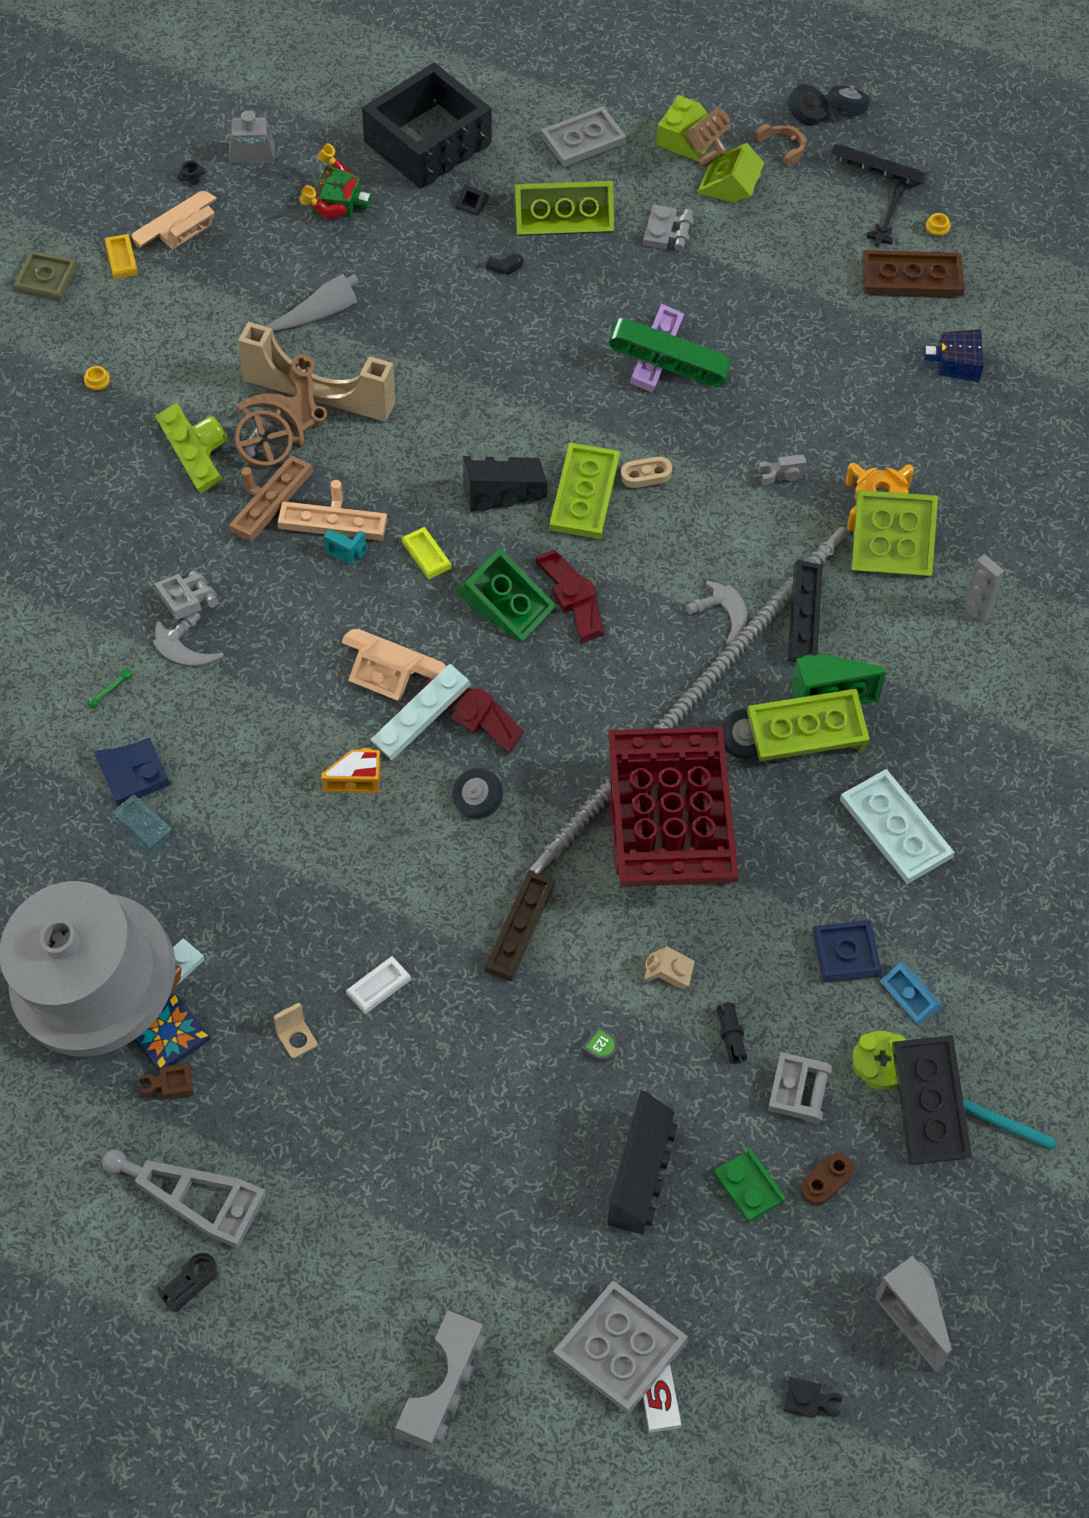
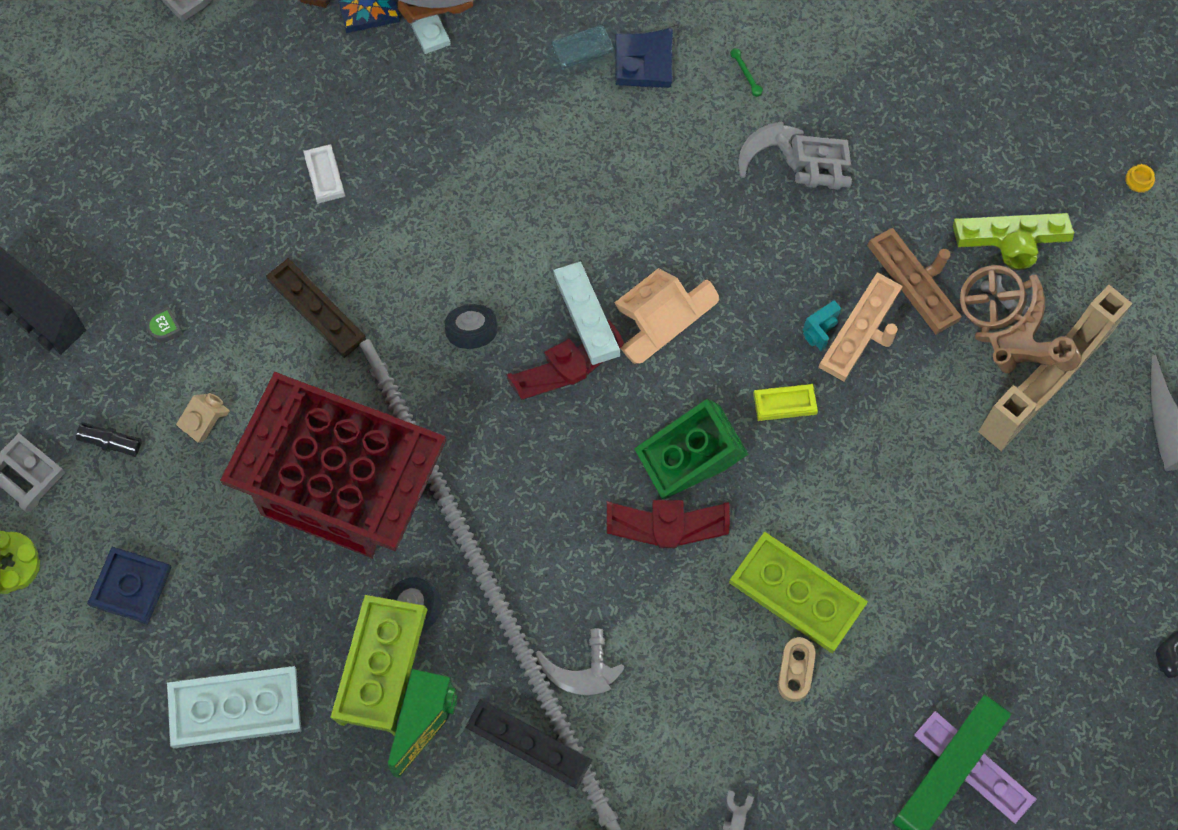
camera: 115 degrees right, 10 degrees up
(291, 1022) = (321, 88): tan bracket -> none
(354, 773) = (547, 233): slope -> none
(502, 483) = (837, 505): black wedge -> none
(911, 993) = (56, 628): dark azure slope -> none

